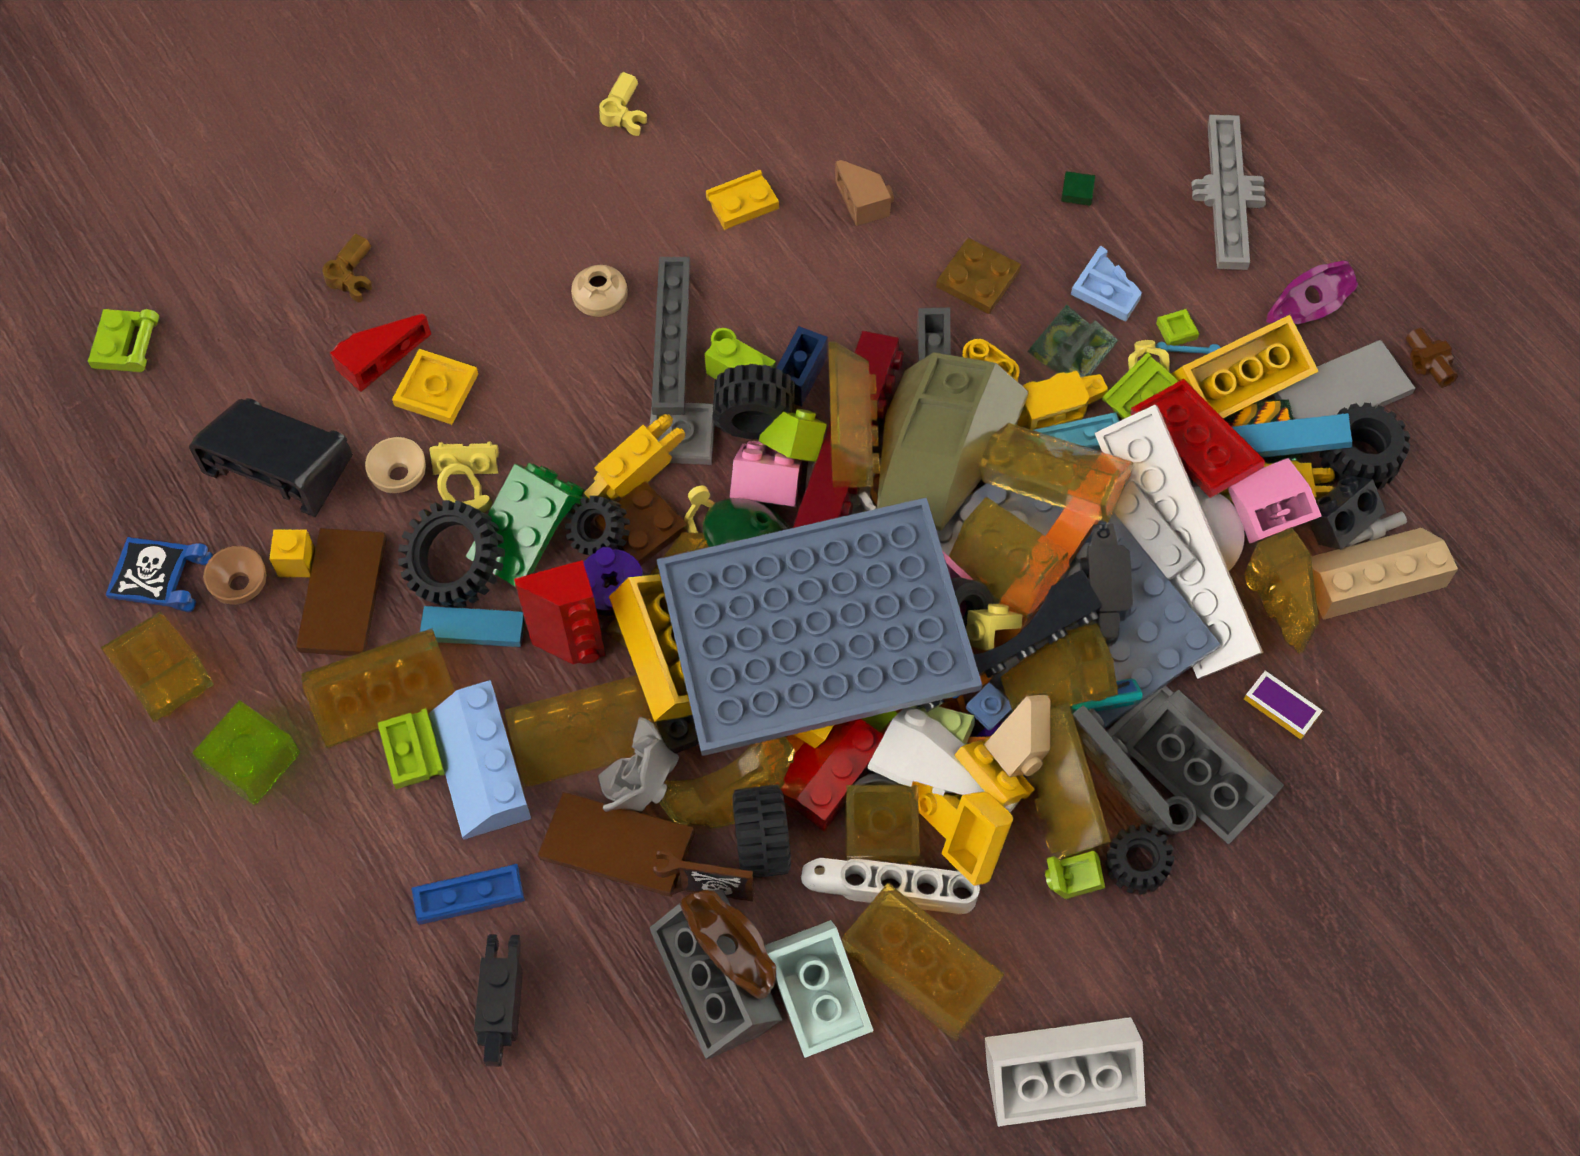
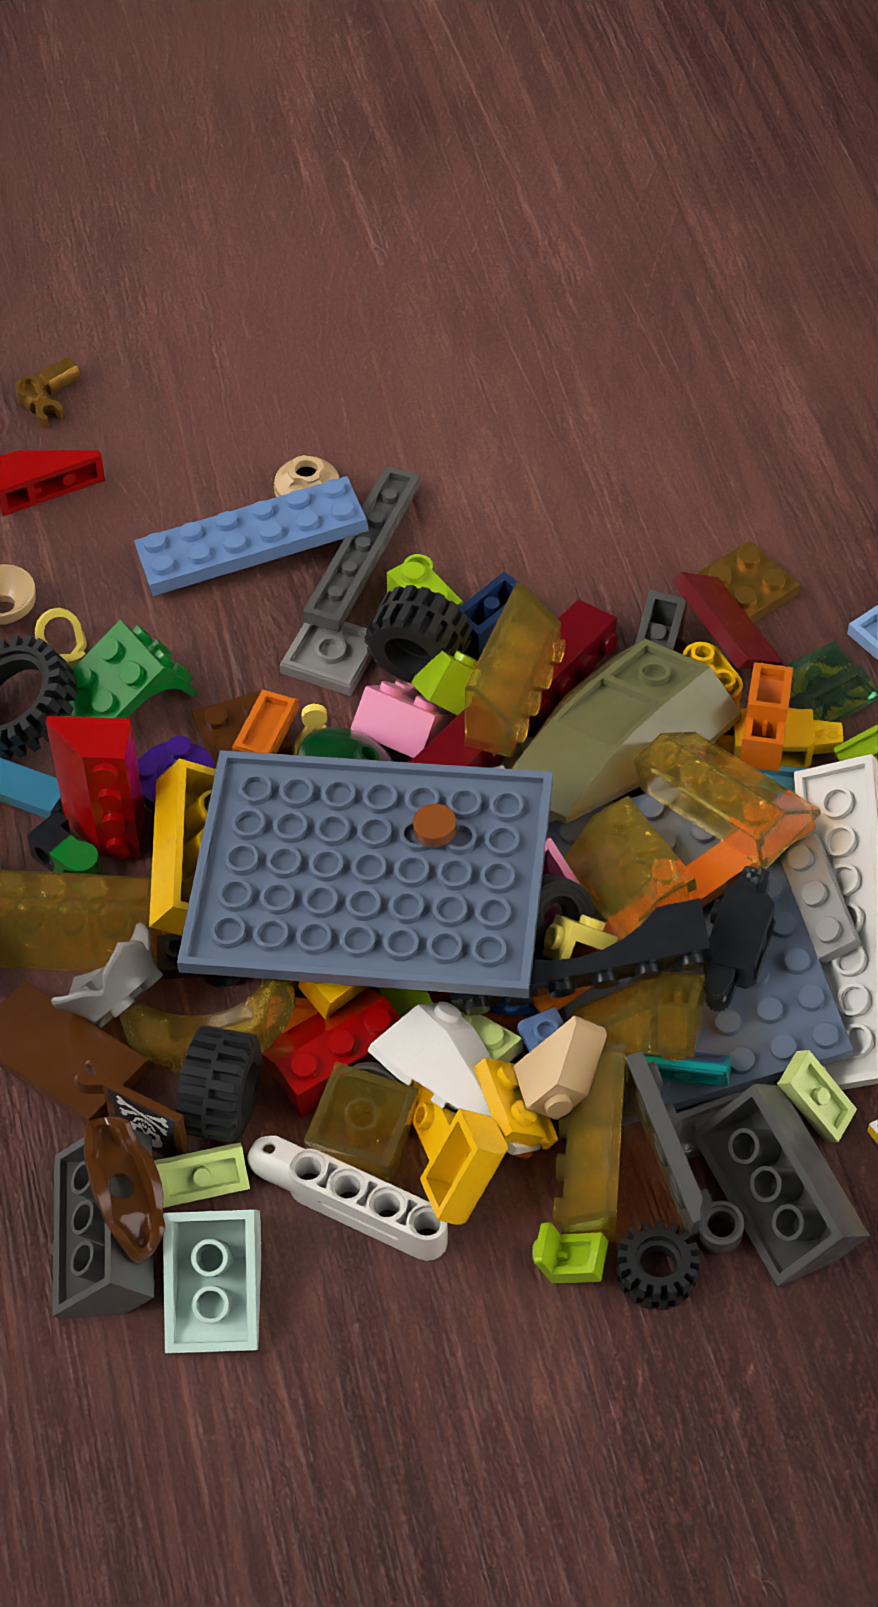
camera: 20 degrees right, 10 degrees down
(435, 386) = (82, 530): yellow plate -> none
(478, 457) = (93, 613): light yellow hinge -> none
(546, 674) = (59, 850): none -> leg
(577, 351) = (250, 535): none -> medium blue plate
(582, 519) = (178, 703): black tyre -> none
(614, 110) = (407, 308): light yellow bar -> none
(636, 460) = (260, 661): yellow hinge -> none
(663, 517) = (267, 723): none -> orange tile
(742, 199) = (508, 435): yellow plate -> none
(776, 903) = (203, 1174): none -> yellowish green plate
(856, 572) = (434, 825): none -> dark orange tile
(863, 192) = (649, 463): medium nougat slope -> none
(921, 961) = (342, 1287): clear yellow slope -> none
(984, 316) = (725, 620): none -> dark red tile
(1049, 389) = (766, 716): none -> orange slope
(1066, 1071) = (461, 1471): white slope -> none
(1204, 687) = (817, 1096): none -> yellowish green plate

